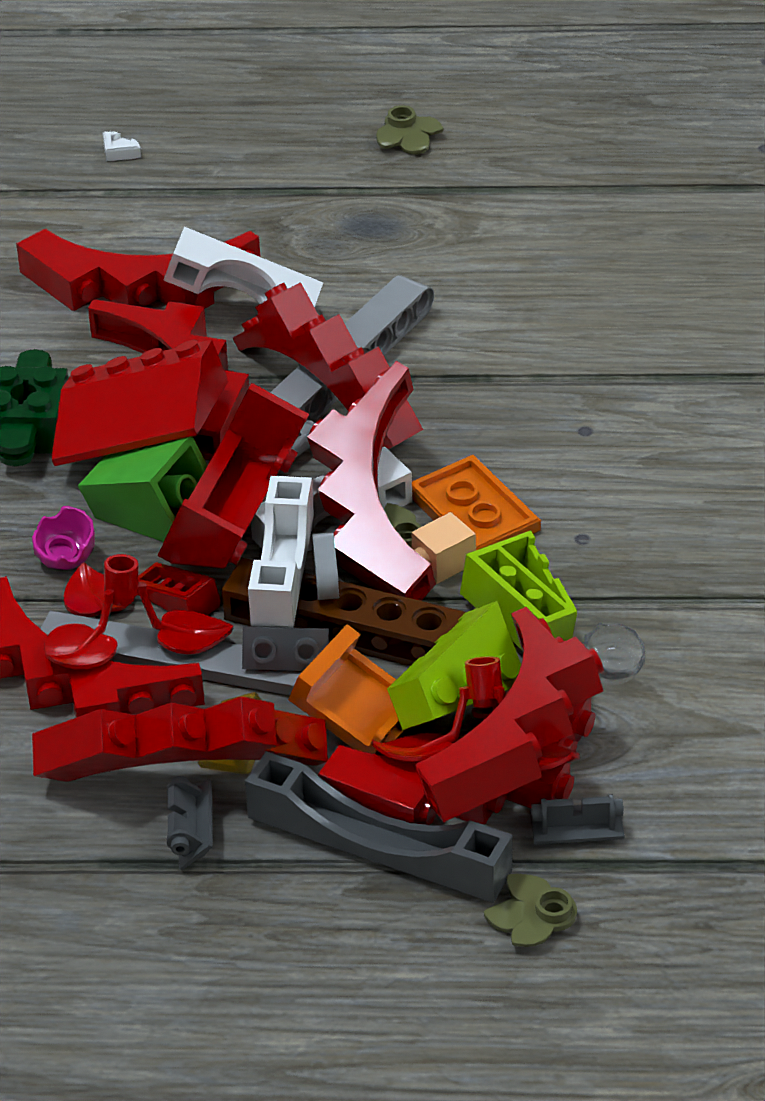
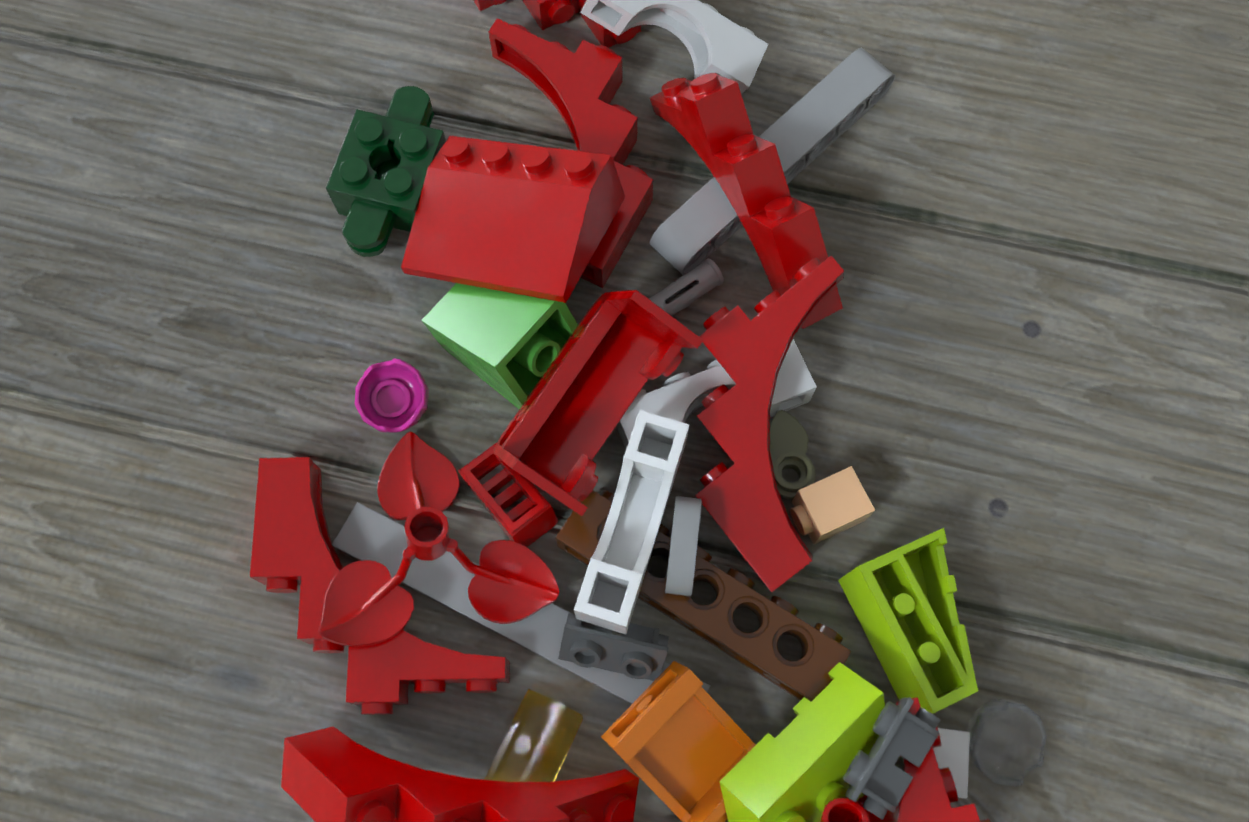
camera: 10 degrees right, 30 degrees up
(476, 499) = (881, 430): orange tile -> none
(509, 613) = (876, 773): none -> dark grey hinge

